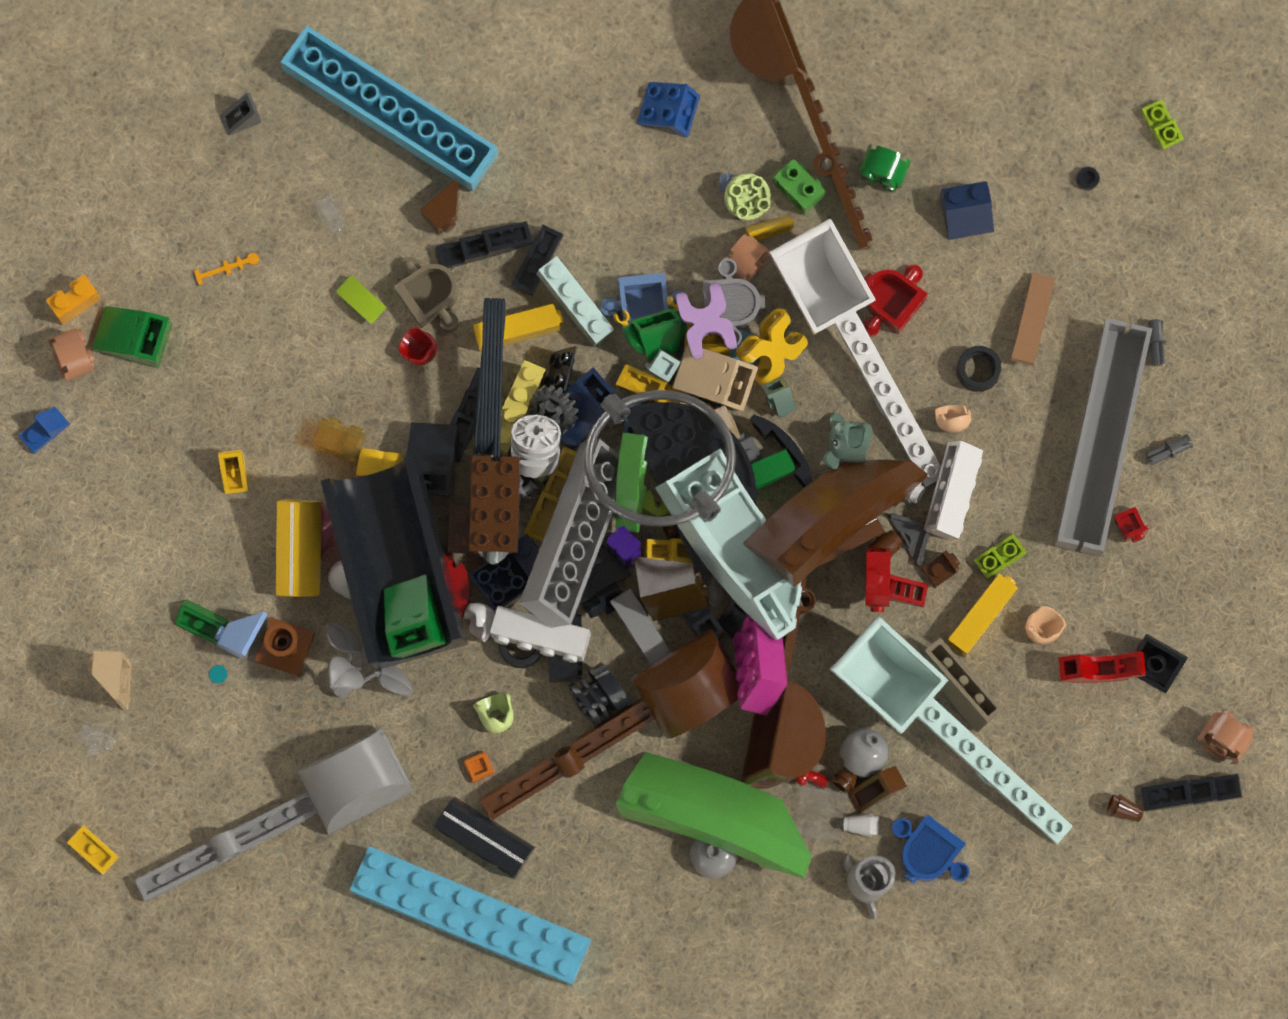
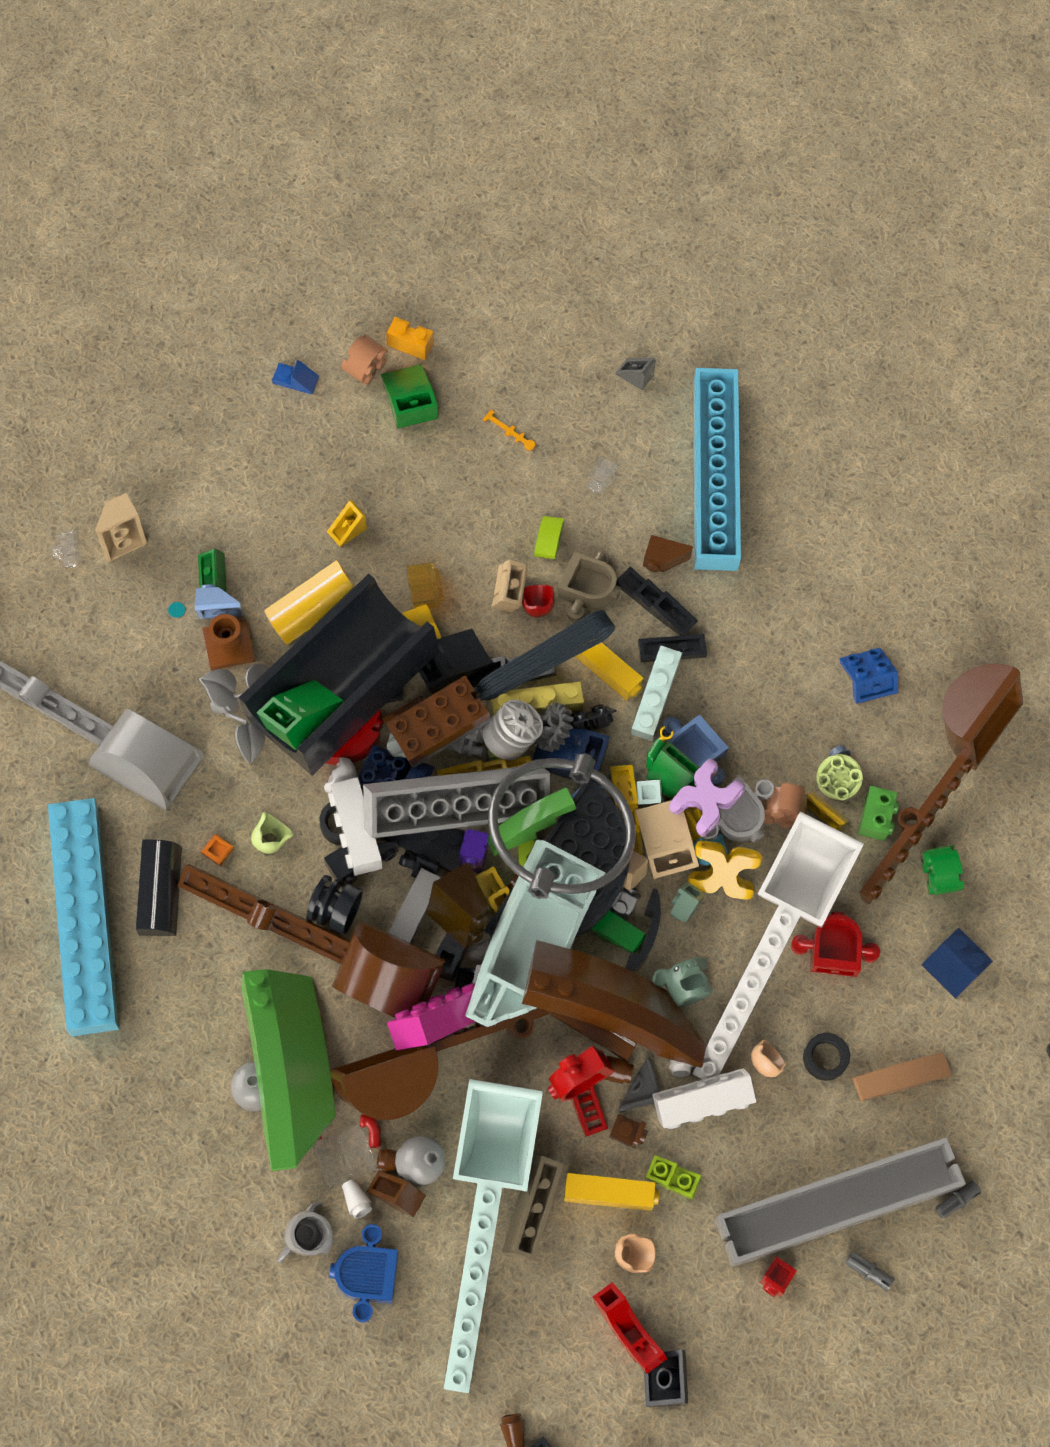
camera: 55 degrees right, 10 degrees down
(389, 364) = (509, 586): none -> tan brick

